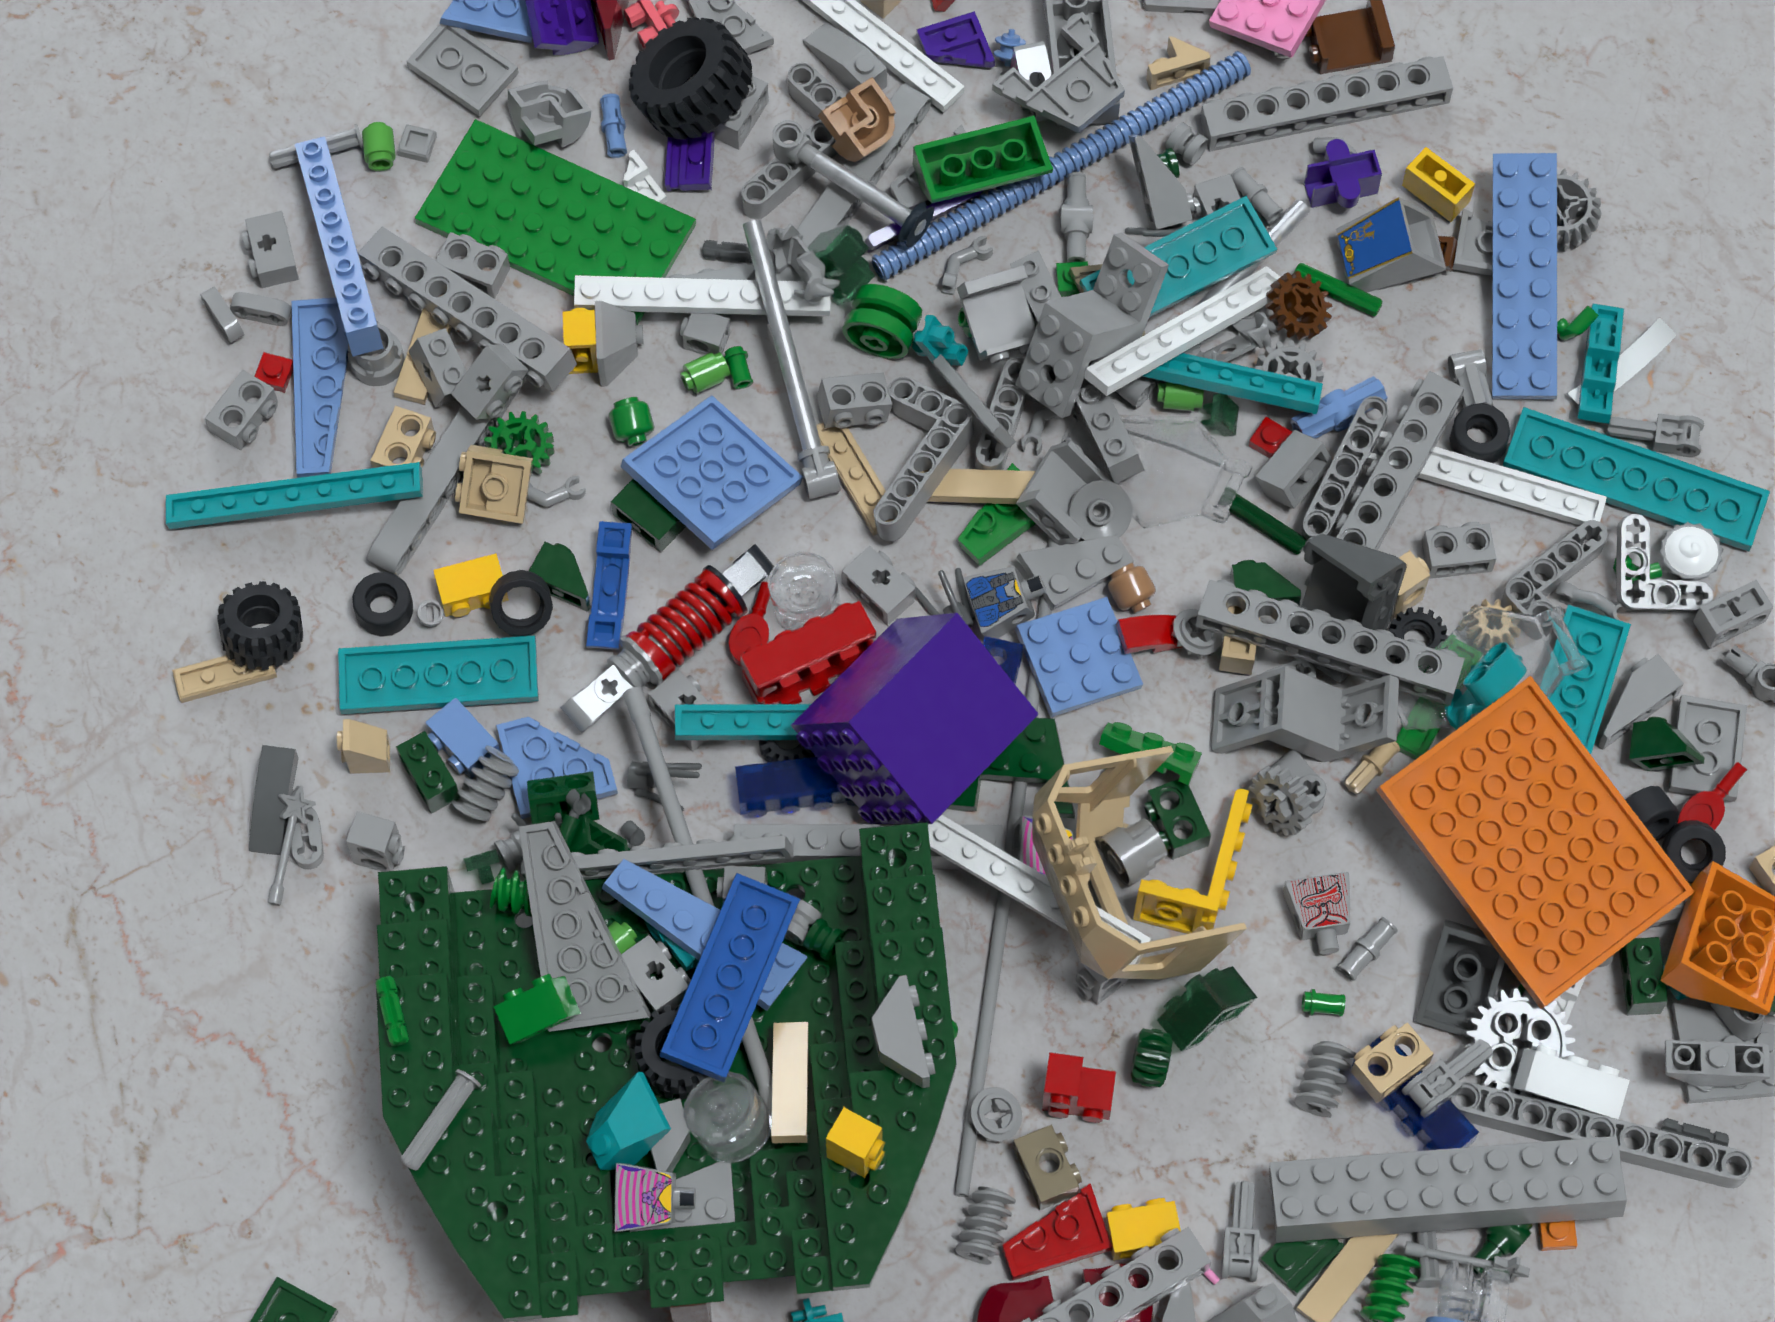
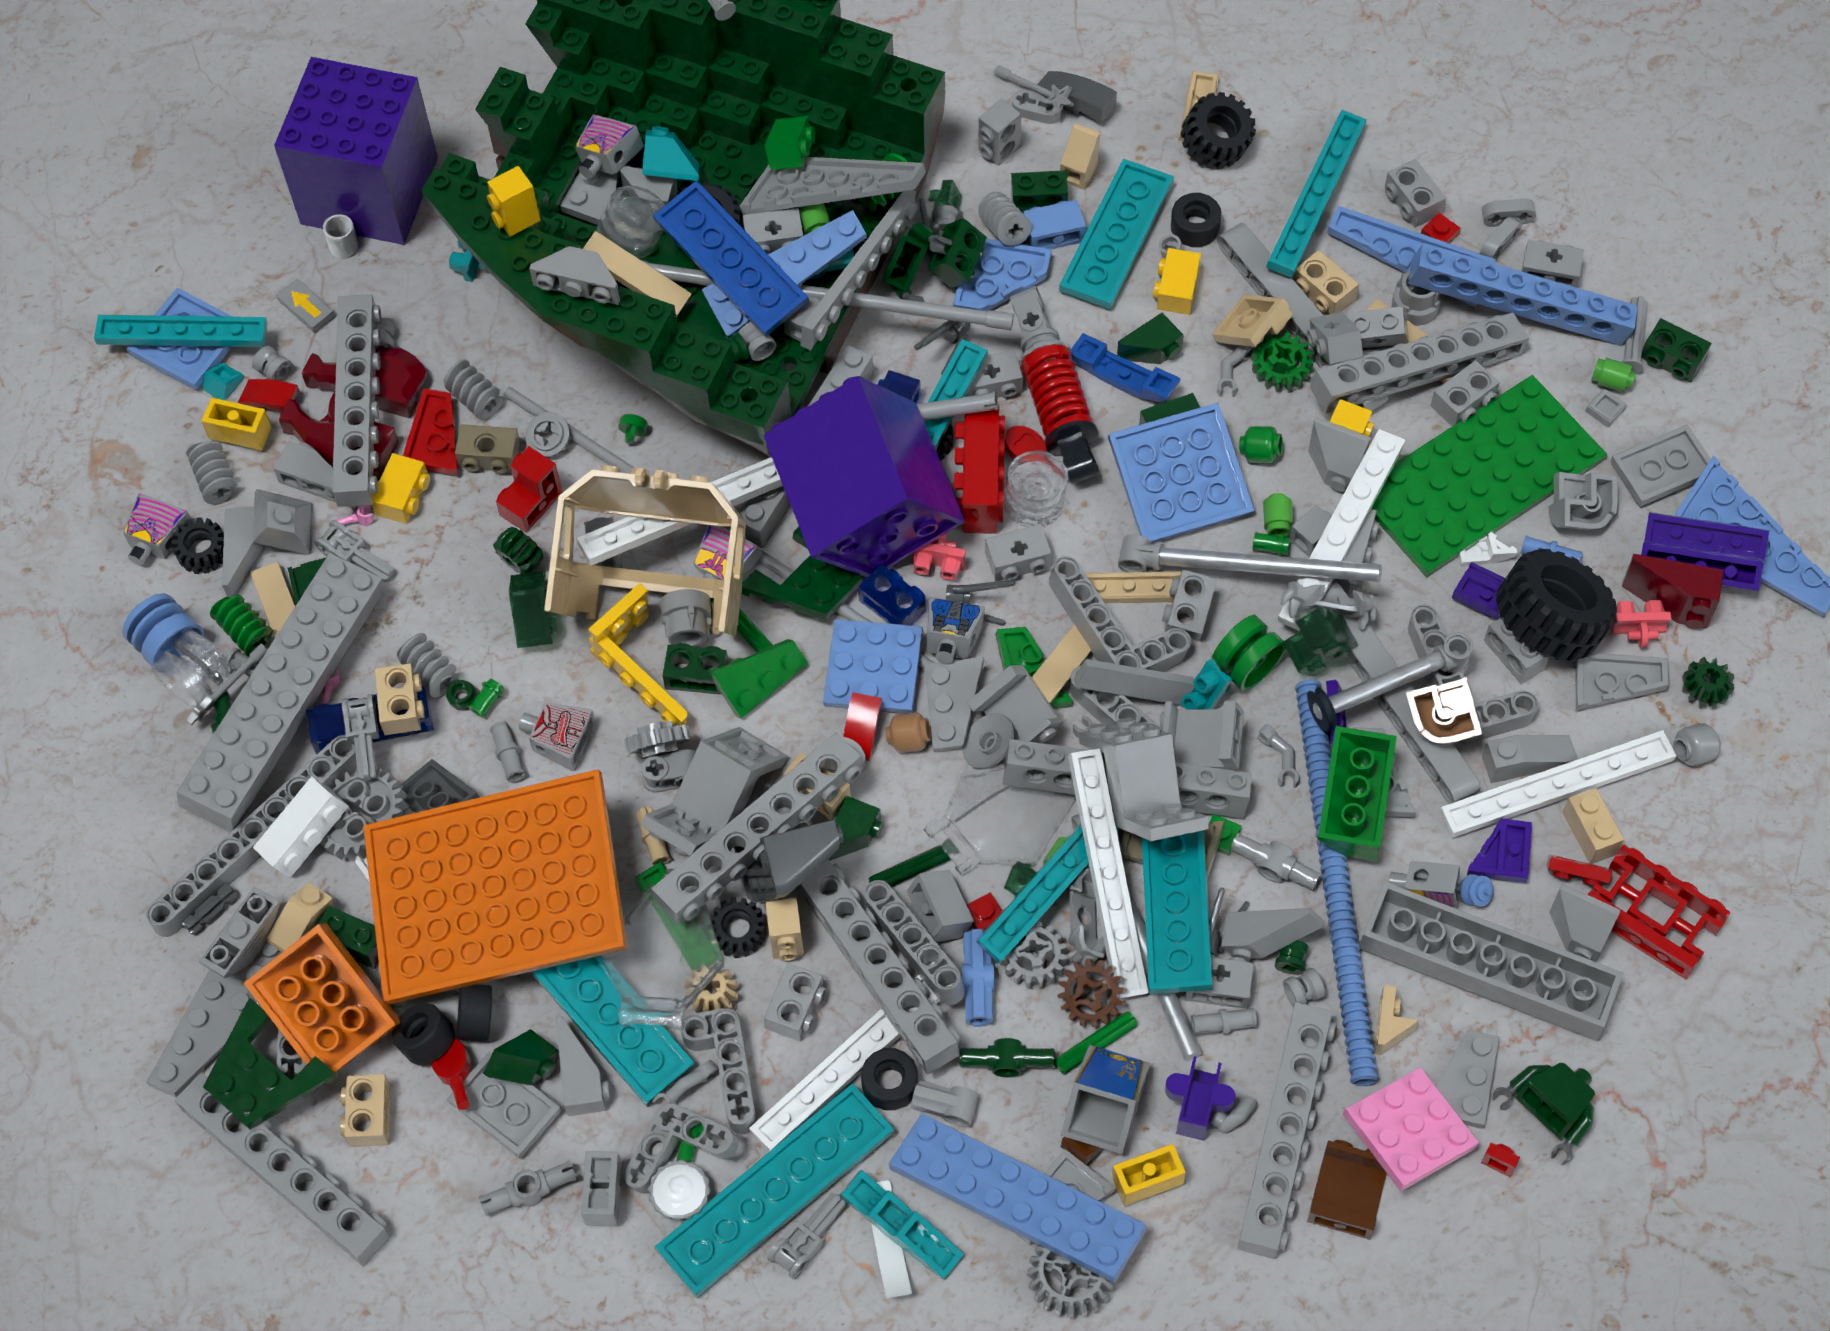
camera: 120 degrees right, 5 degrees down
(317, 103) = (1677, 346): none -> dark green brick
(523, 626) = (1147, 306): black tyre -> none
(726, 251) = (1385, 586): dark grey axle -> none
(769, 690) = (958, 406): none -> light grey pin
(1074, 92) = (1390, 901): light grey wing -> none
(1335, 1022) = (457, 688): none -> dark green plate
(1397, 347) = (1007, 1057): none -> dark green pin
(1486, 683) = (650, 935): teal piece -> none
(1577, 326) = (945, 1221): green arm -> none
(1648, 1028) = (299, 916): none -> tan slope

